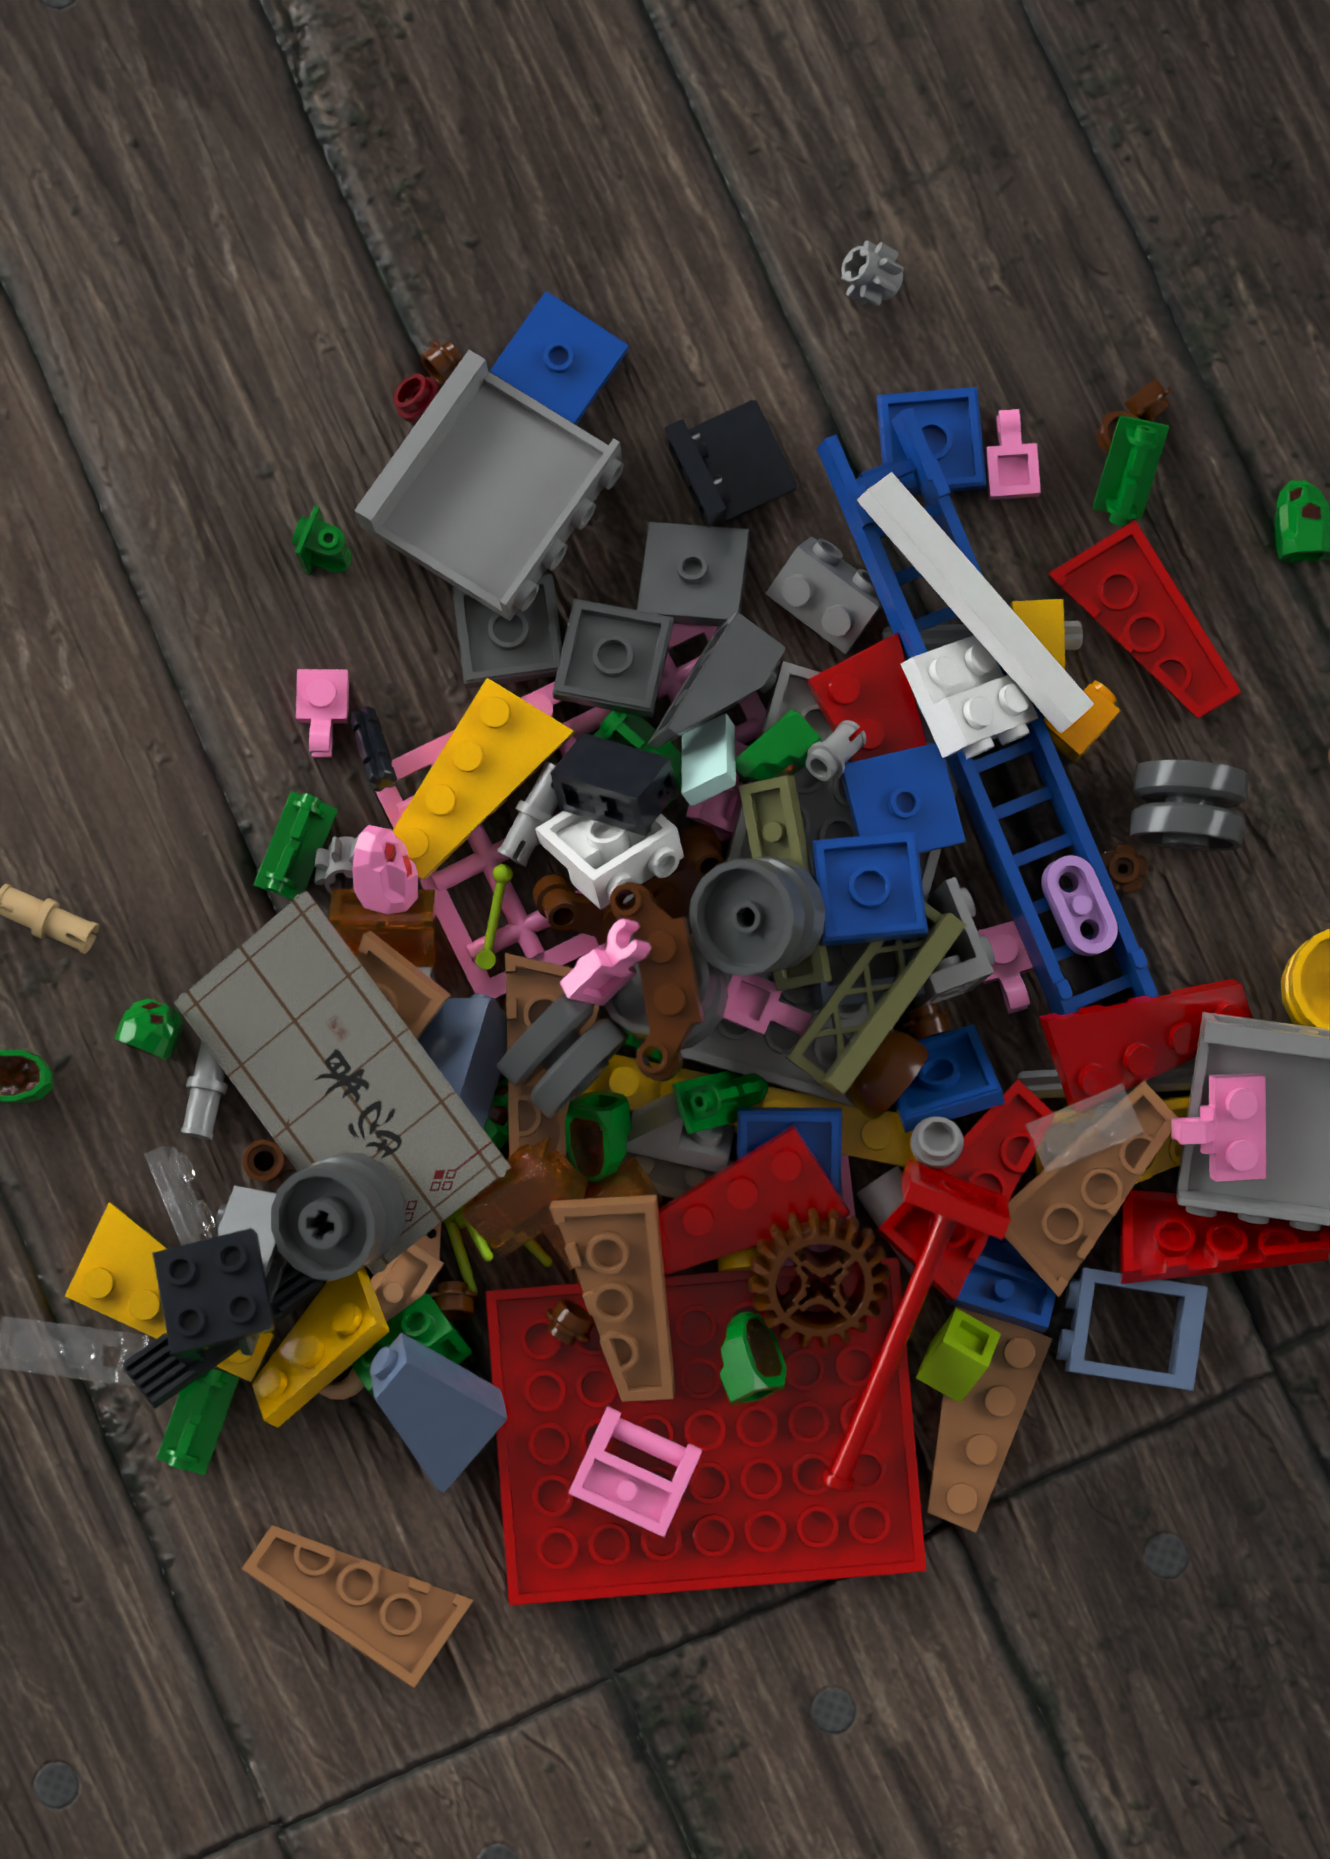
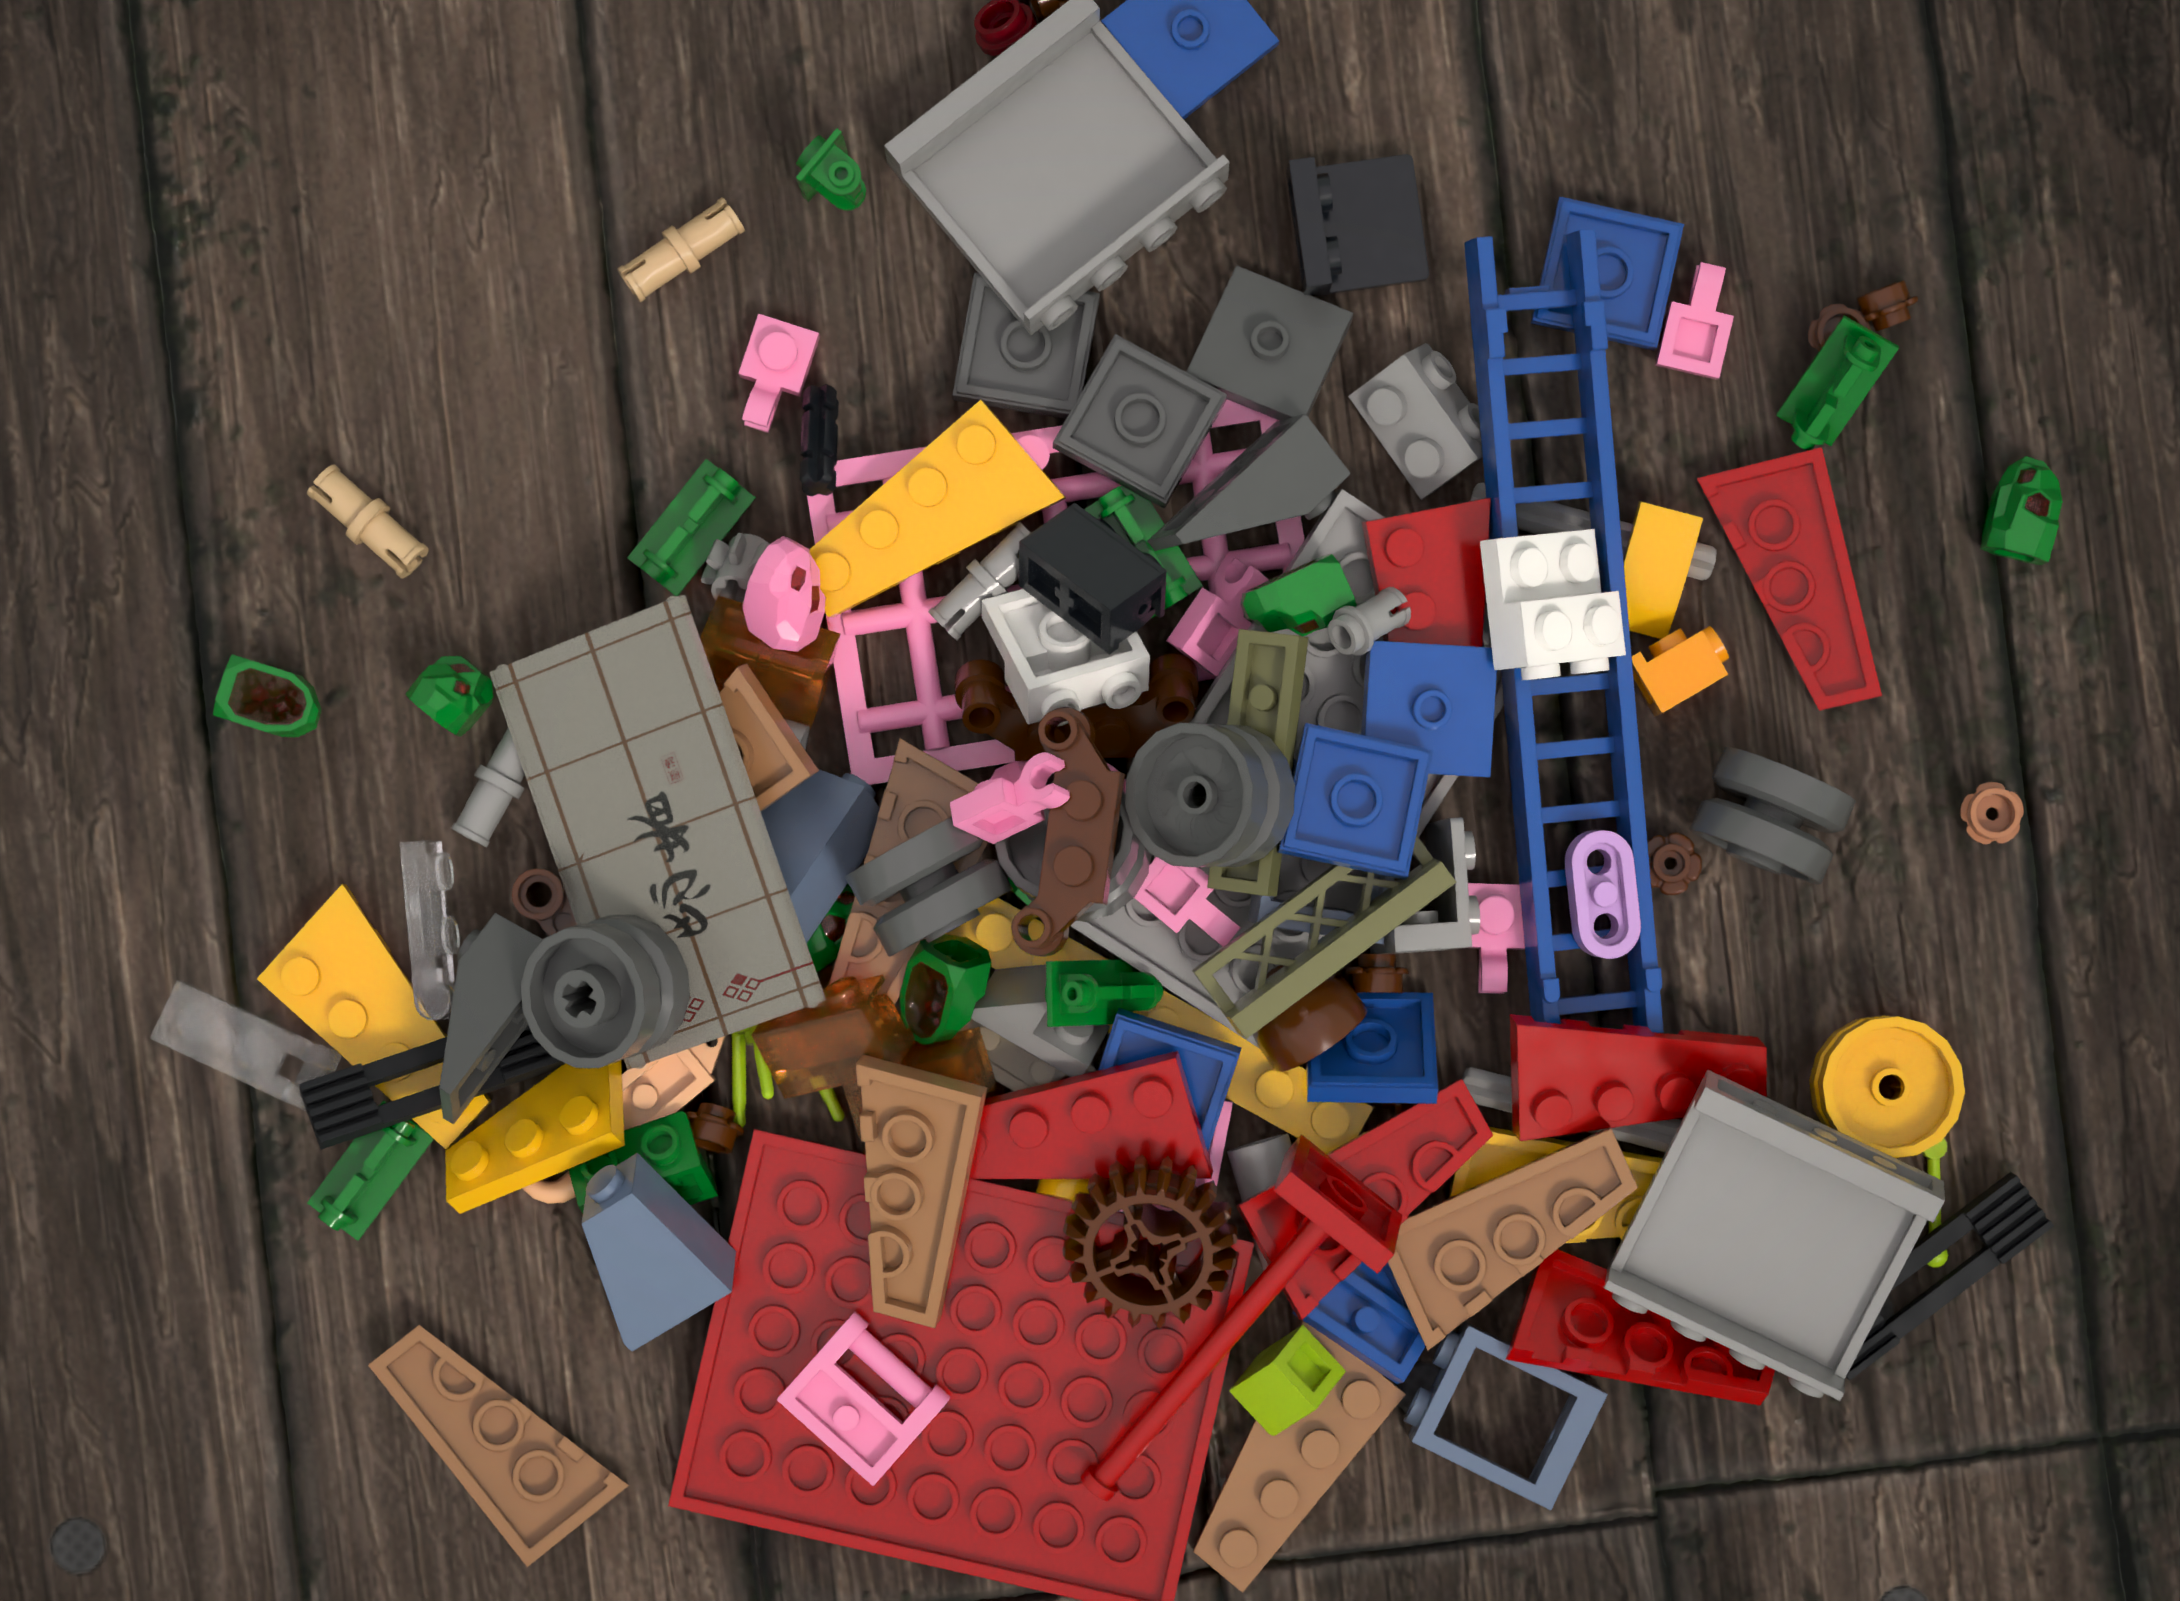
camera: 20 degrees right, 5 degrees up
(213, 1293) = (429, 1039): black bracket -> none
(223, 639) = (681, 249): none -> tan pin
(485, 958) = (876, 733): lime hinge -> none
(569, 1322) = (840, 1199): reddish brown plate -> none
(708, 760) = (1214, 583): light aqua tile -> none
(751, 1360) = (1040, 1311): green rock -> none
(872, 273) = (1602, 44): light grey gear -> none
(936, 1142) = (1340, 1126): light grey plate -> none
(975, 602) = (1594, 493): white tile -> none
(1084, 1128) = (1521, 1164): clear plate -> none
(1230, 1127) = (1694, 1216): bright pink hinge -> none

